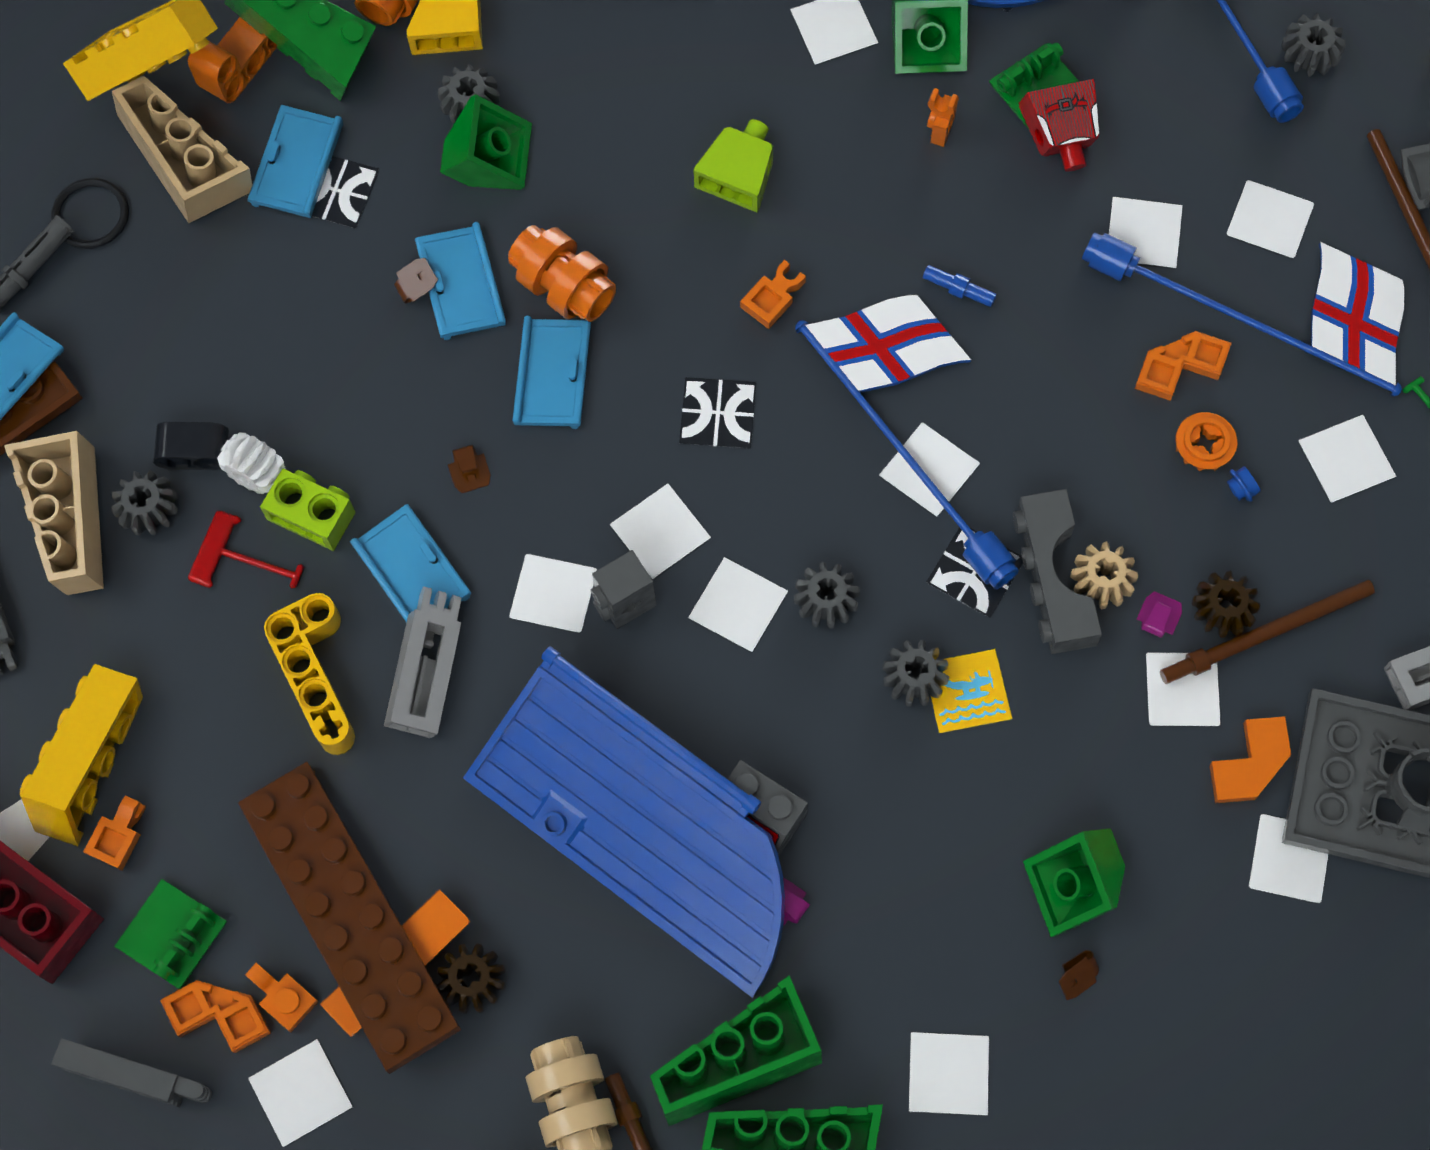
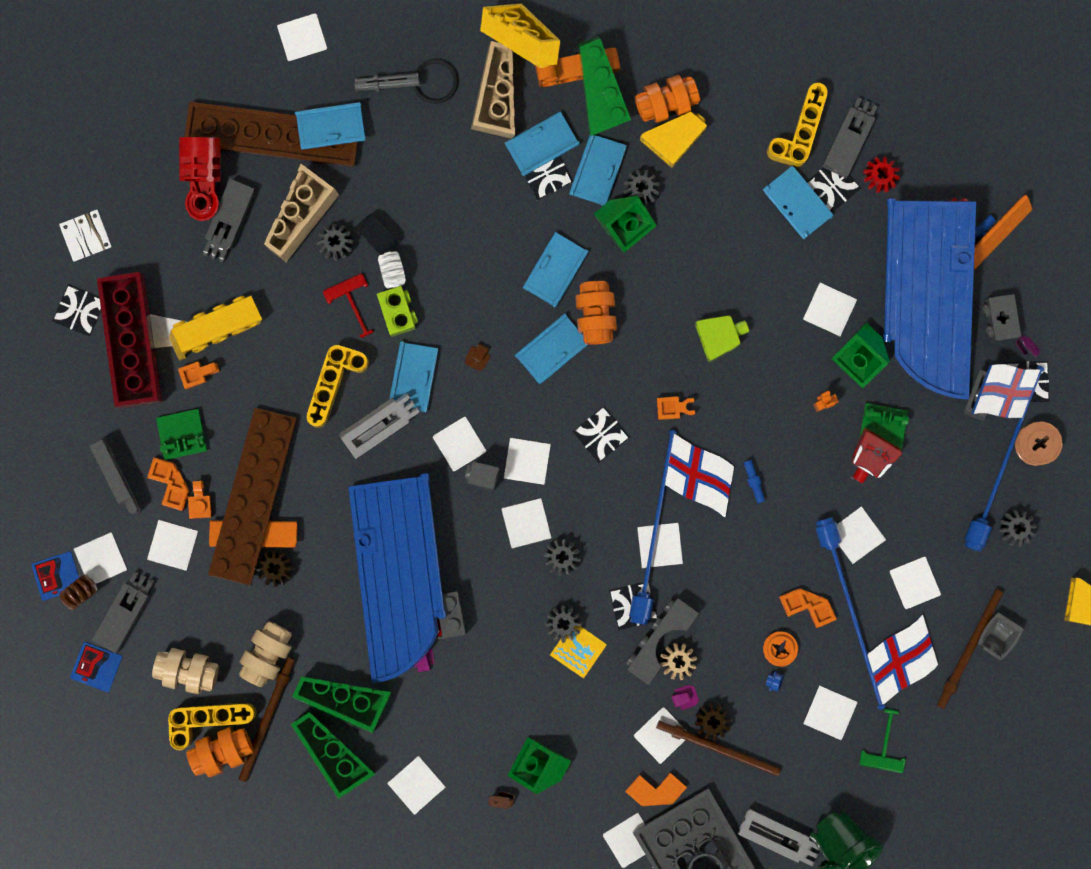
camera: 45 degrees right, 15 degrees up
(387, 121) = (598, 164): none -> dark azure door
(415, 280) = (536, 252): piece -> none

